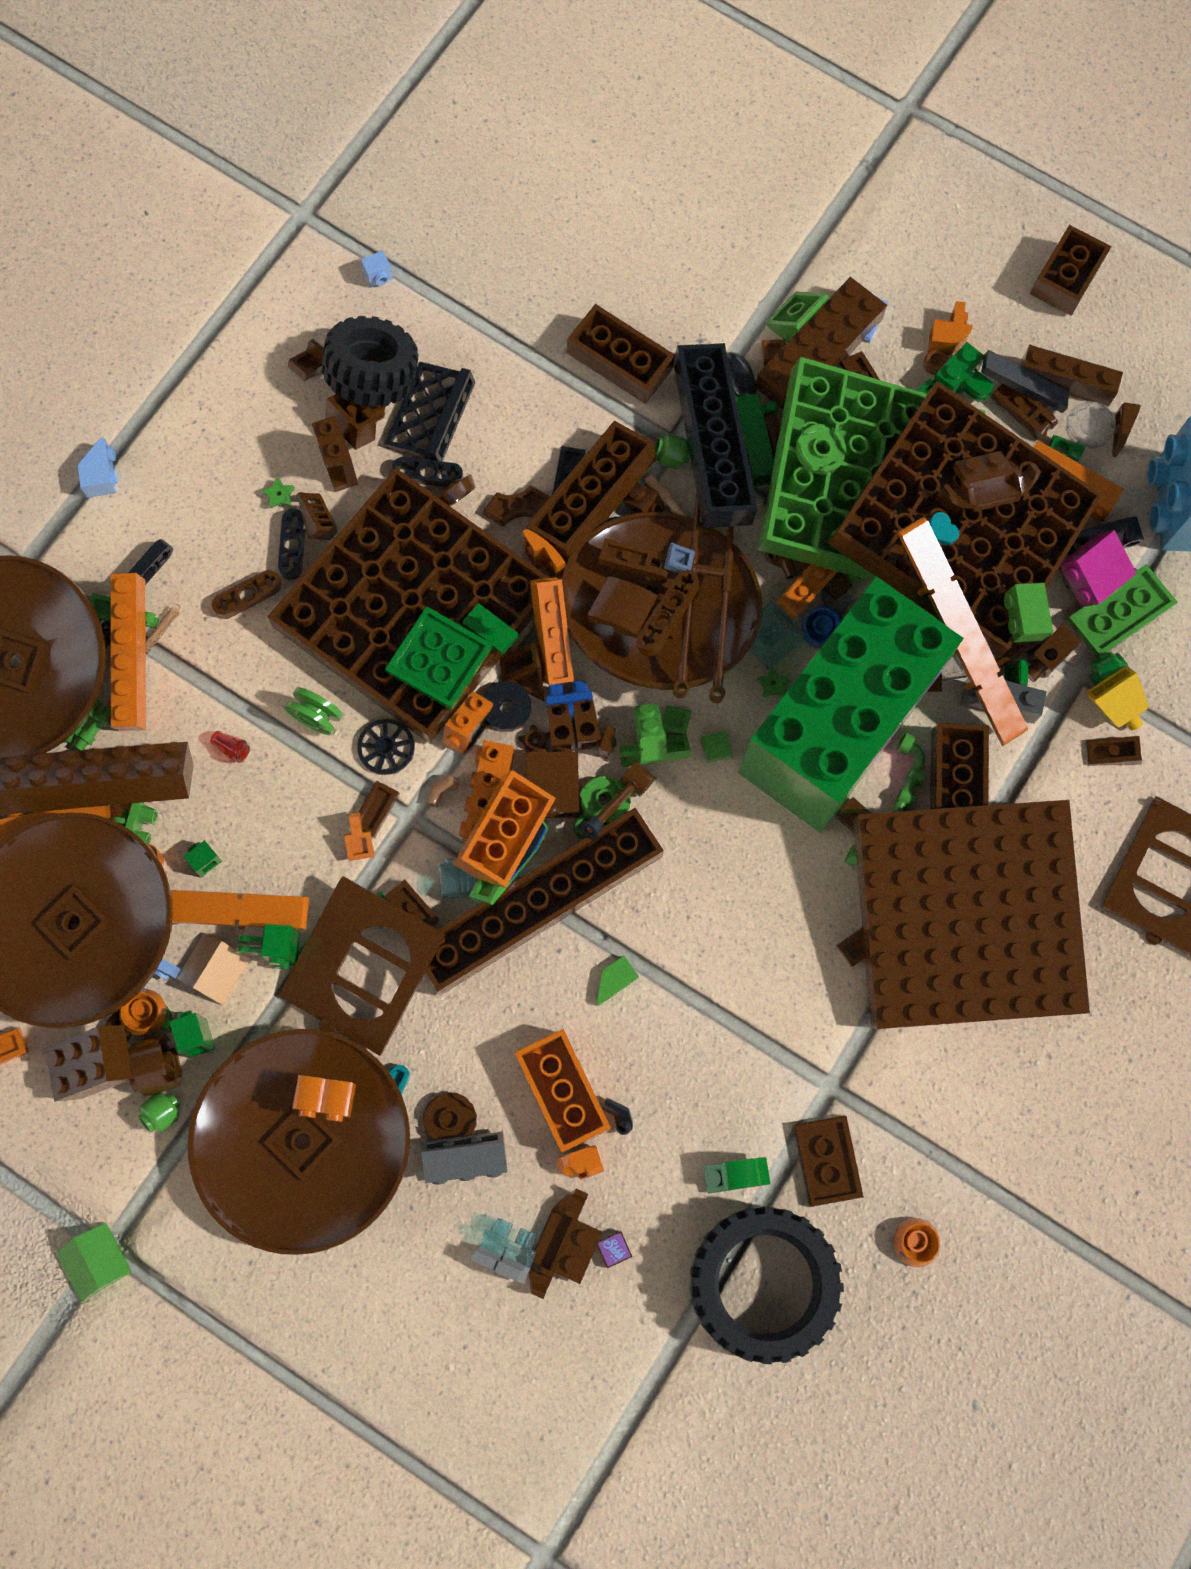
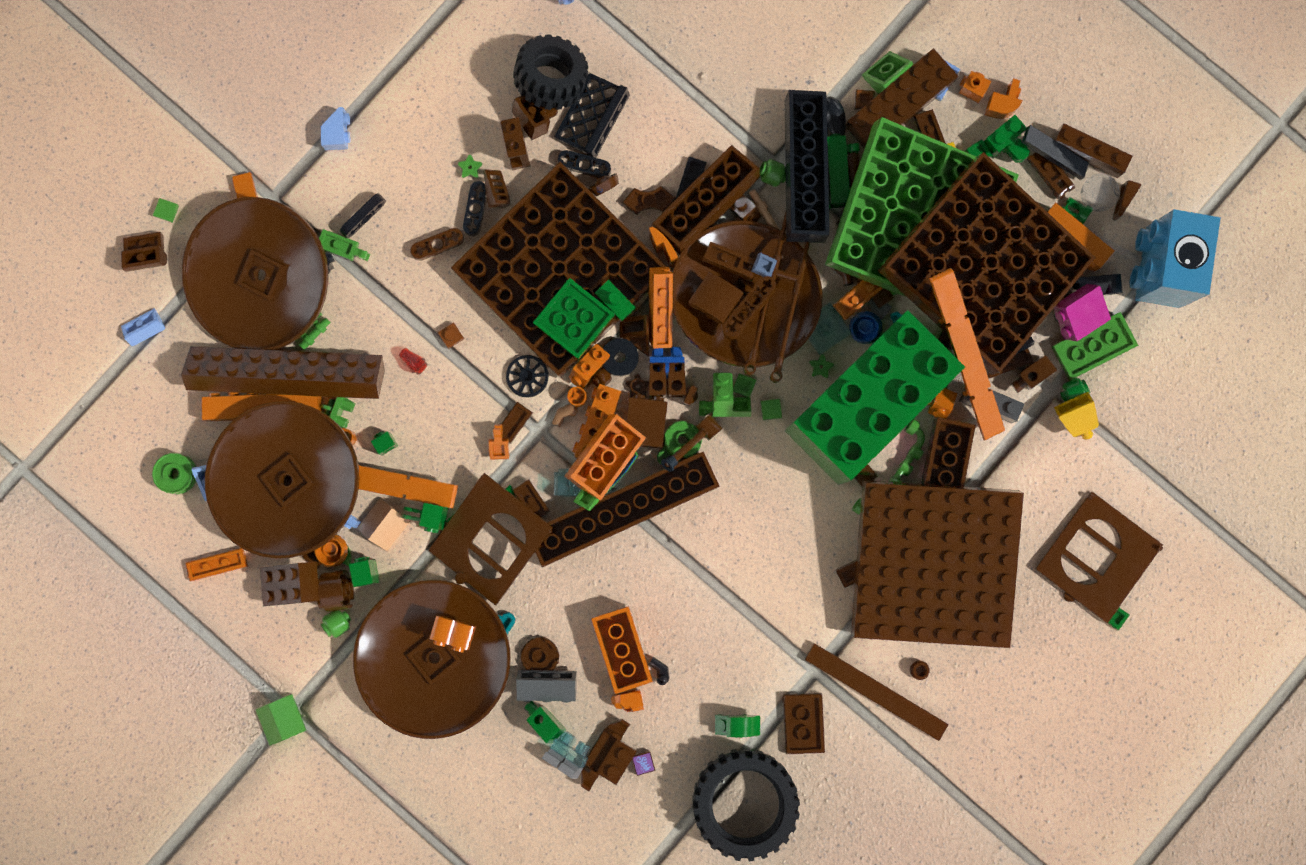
camera: 10 degrees right, 10 degrees up
(128, 652) = (345, 280): orange brick -> none
(159, 627) = (370, 265): light nougat piece -> none
(275, 706) = (451, 335): none -> dark orange plate
(308, 362) = (503, 63): reddish brown bracket -> none
(313, 711) = (476, 344): bright green wheel -> none
(454, 758) = (577, 396): none -> orange wheel
(473, 1216) = (549, 728): none -> green torso
(484, 732) = (602, 377): none -> reddish brown piece
(615, 978) = (671, 572): bright green tile -> none
(620, 353) = (744, 88): reddish brown brick -> none
(811, 458) = (877, 202): bright green tile -> none
(909, 318) = (974, 86): none -> orange brick
(917, 1242) = (857, 789): orange hat -> none
(920, 1103) = (876, 692): none -> reddish brown tile
(935, 361) = (989, 124): dark orange tile -> none
(938, 705) = (942, 404): none -> orange brick
(943, 529) = (965, 274): teal tile -> none
(980, 1061) = (926, 670): none -> reddish brown plate
(990, 482) = (1009, 240): reddish brown plate -> none
(1017, 672) = (1005, 385): green tile -> none
(1028, 612) = (1019, 347): bright green brick -> none
(1070, 270) = (1108, 63): reddish brown brick -> none
(1114, 751) = (1067, 453): reddish brown slope -> none

